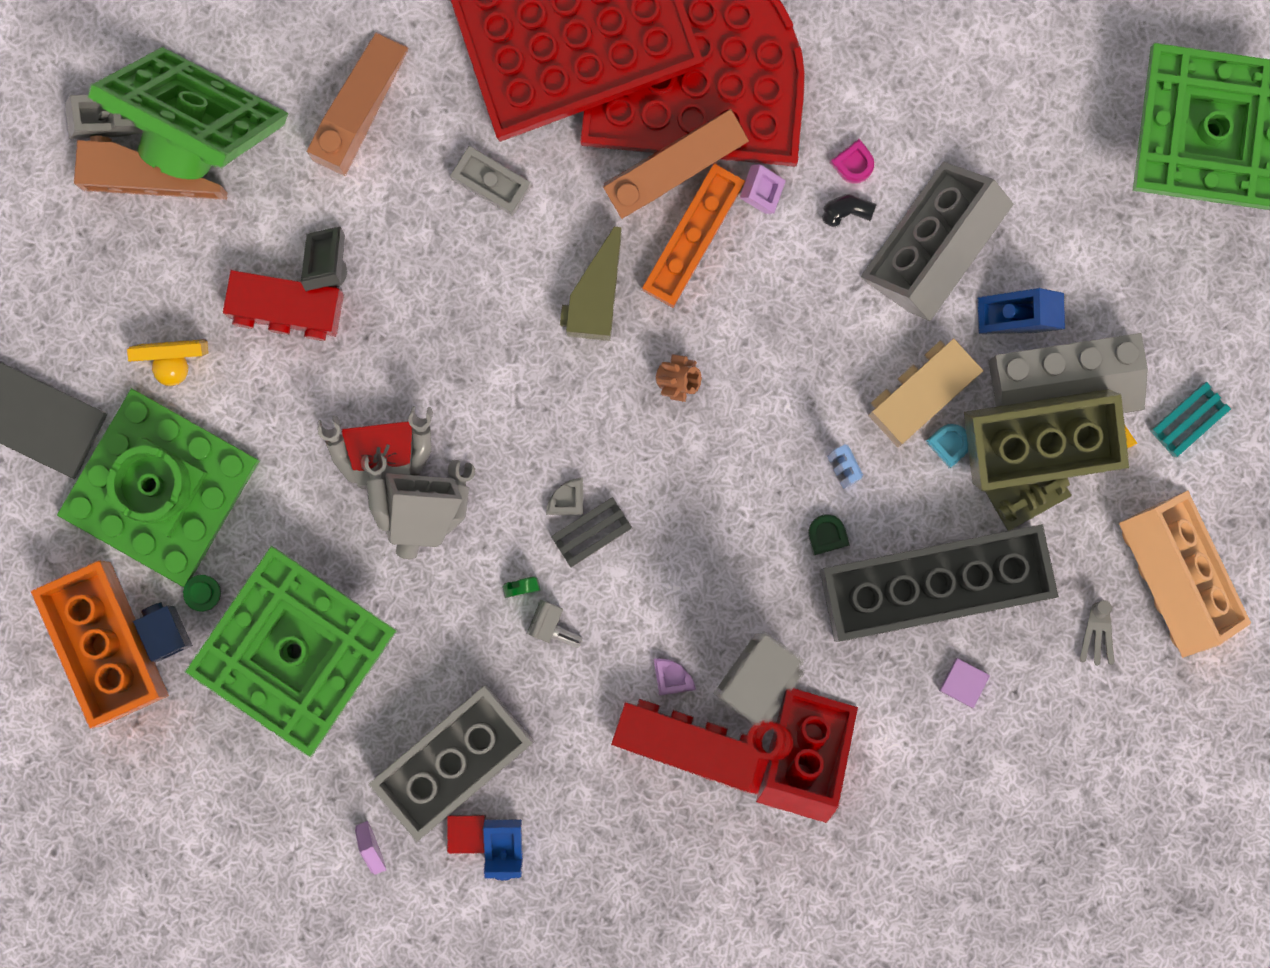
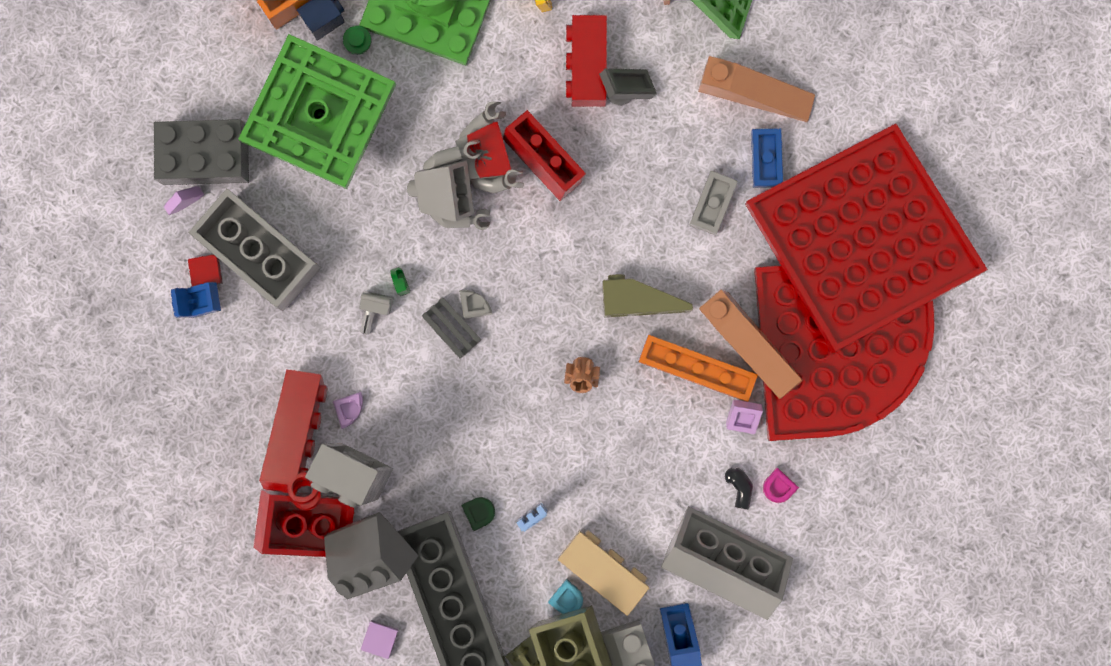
camera: 85 degrees right, 0 degrees up
(313, 814) = (200, 152): none -> dark grey brick
(395, 378) = (543, 155): none -> red brick
(445, 105) = (766, 157): none -> blue plate
(862, 676) = (366, 556): none -> dark grey slope

